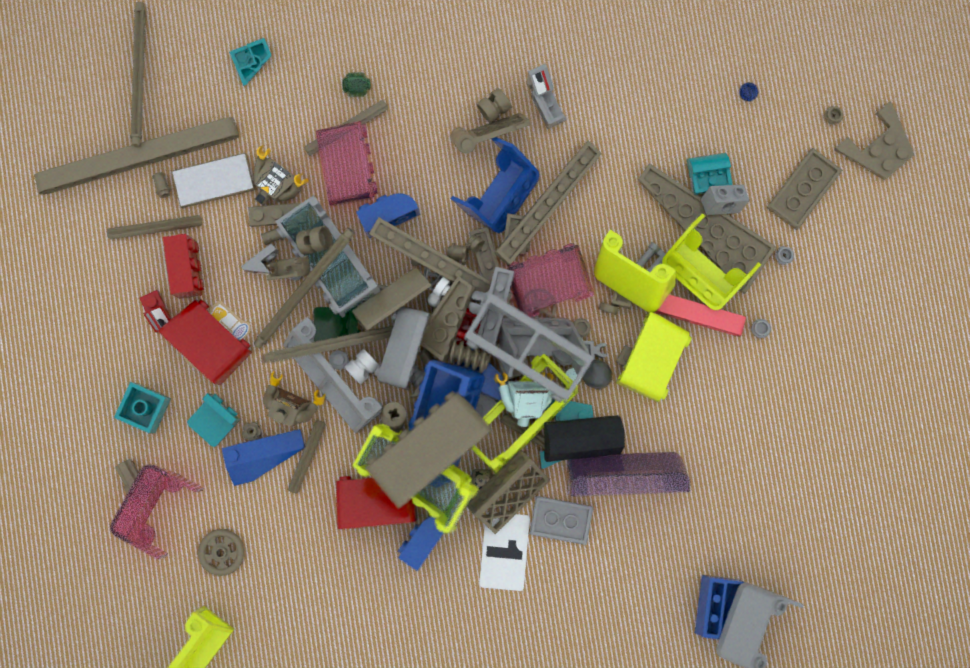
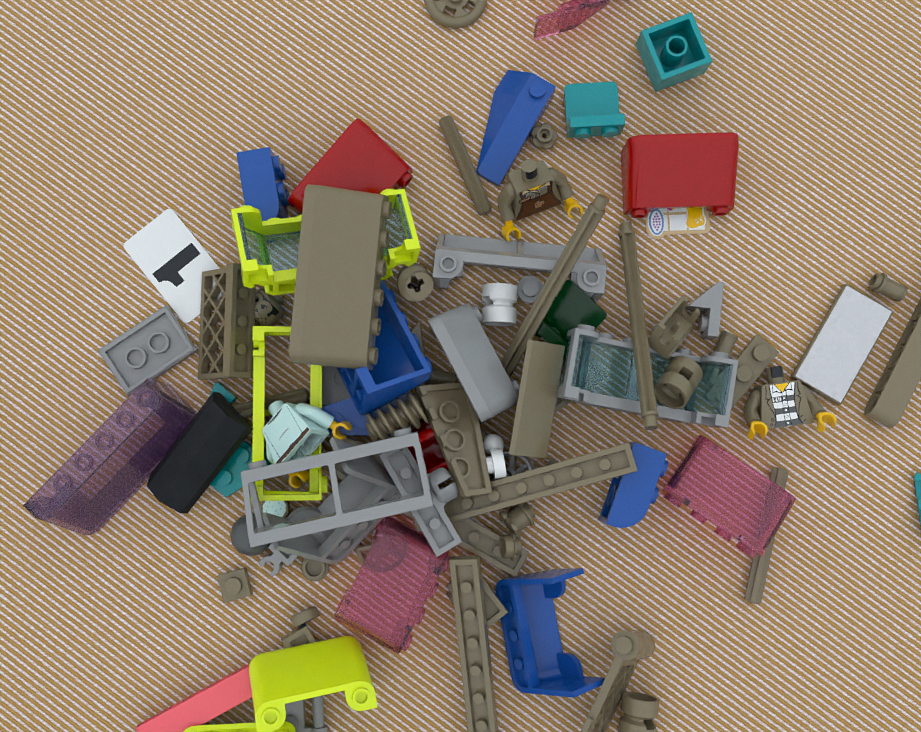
camera: 140 degrees right, 0 degrees up
(153, 227) = (849, 239): dark tan axle -> none
(155, 310) = (760, 160): red slope -> none
(183, 266) = (782, 225): red brick -> none
(355, 84) = (804, 591): clear green head -> none
(416, 376) = (433, 350): light grey wheel -> none
(654, 357) = (205, 613): neon yellow windscreen -> none

